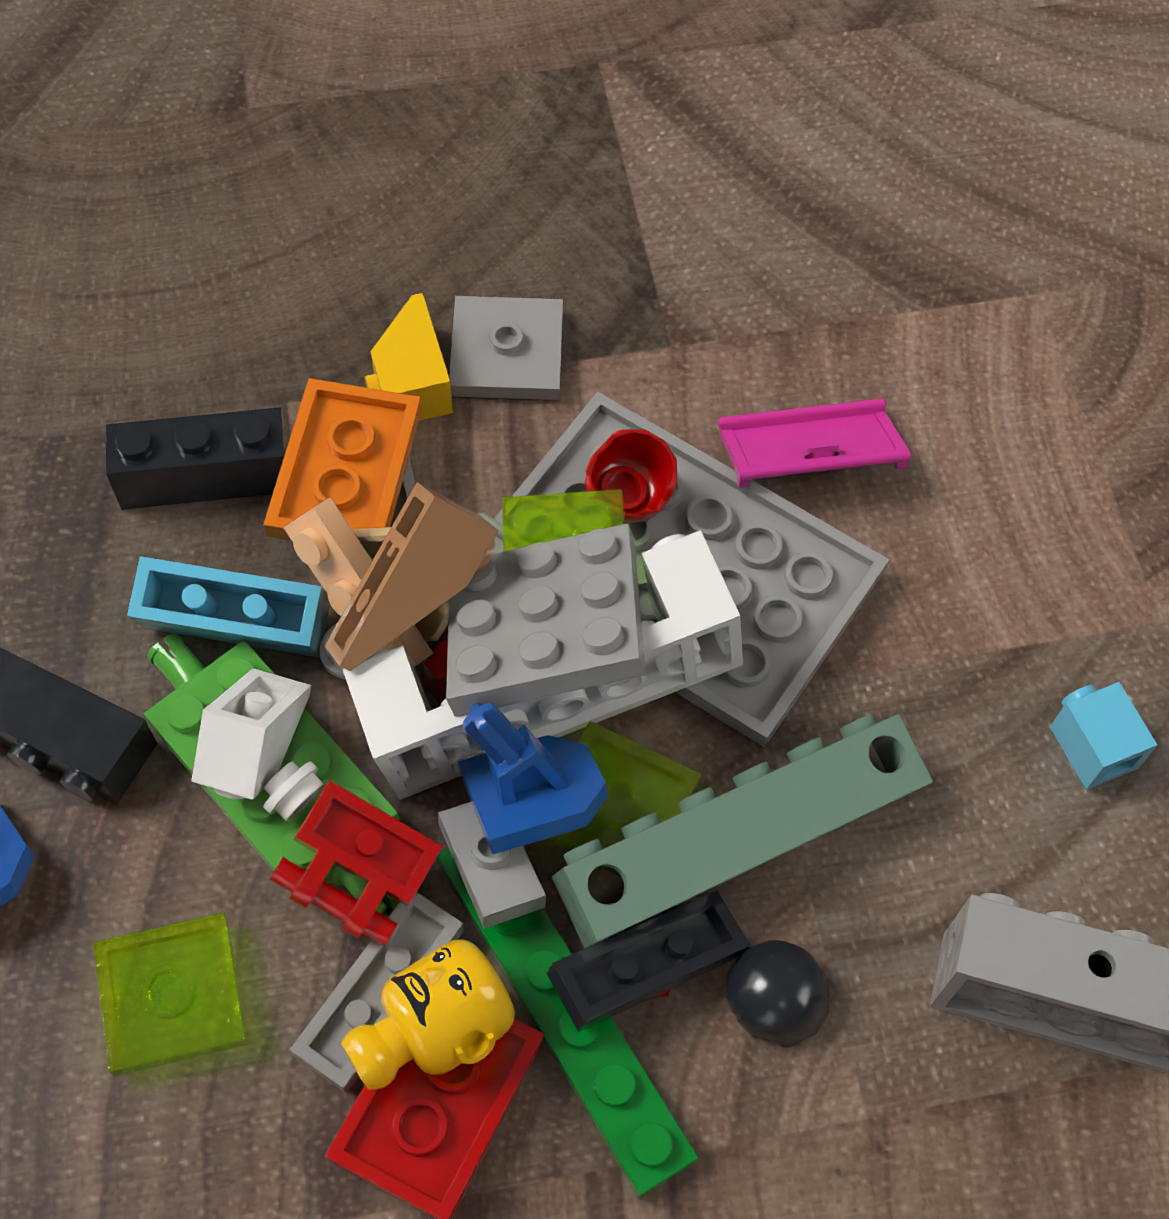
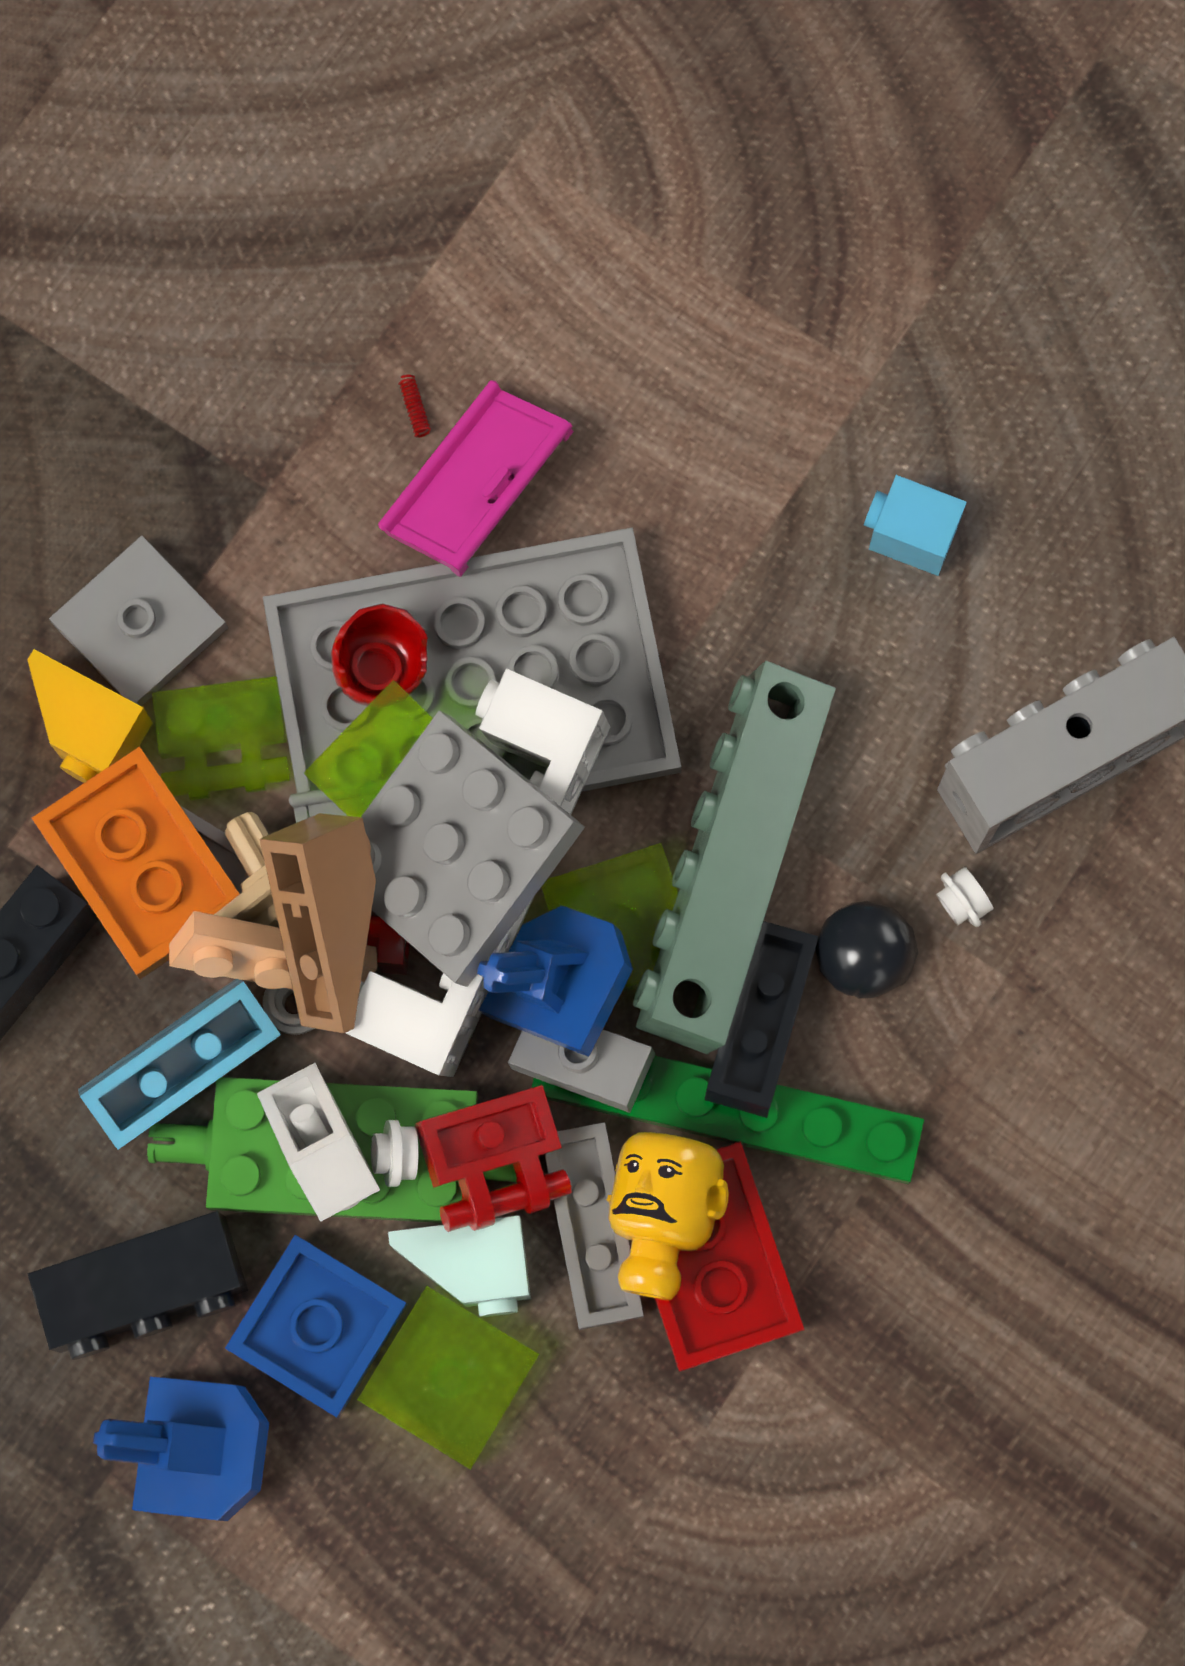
camera: 40 degrees left, 15 degrees up
(125, 868) = (316, 1326): none -> blue plate
(269, 932) = (473, 1266): none -> light aqua slope
(489, 440) = (217, 720): none -> clear neon green plate
(818, 381) = (415, 400): none -> red leg
(889, 1025) = (964, 898): none -> white plate

